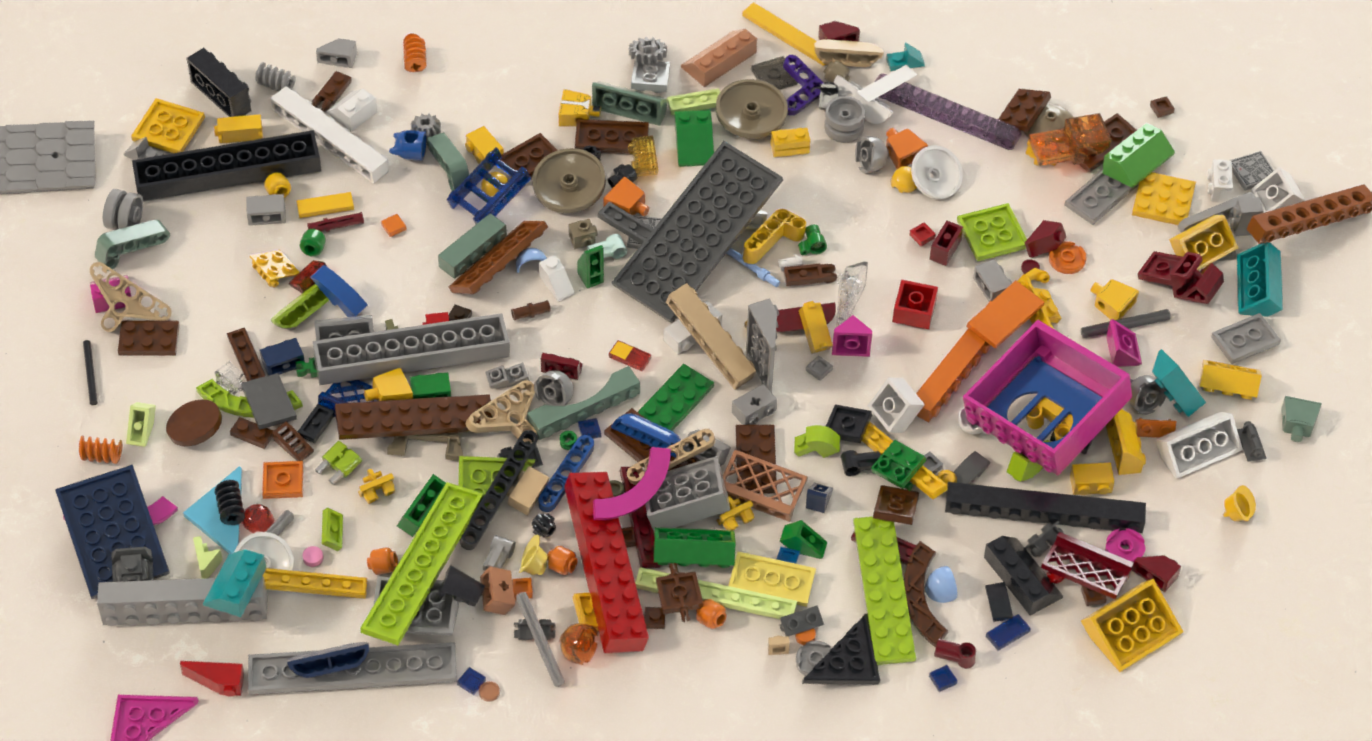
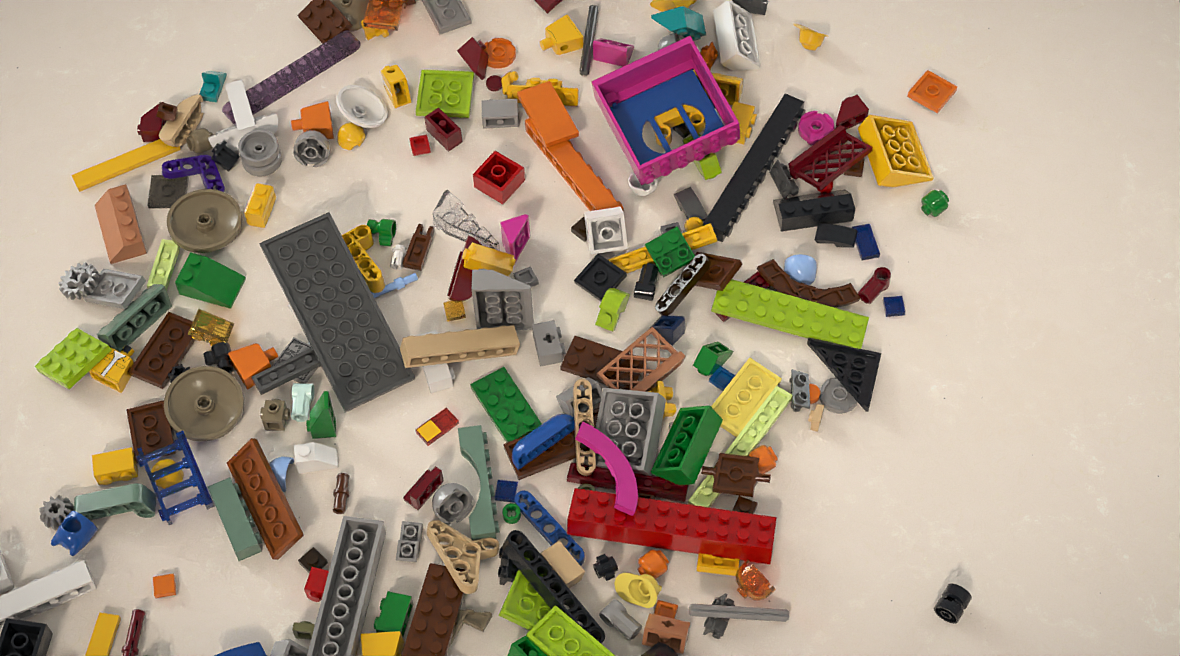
camera: 65 degrees left, 5 degrees up
(570, 76) = (72, 358): none -> lime plate
(847, 34) = (166, 111): none -> reddish brown plate
(869, 488) = (681, 283): none -> dark brown beam
(976, 189) = (394, 78): none -> yellow torso
(1085, 677) = (934, 203): none -> green head
(1231, 638) = (932, 91): none -> orange plate

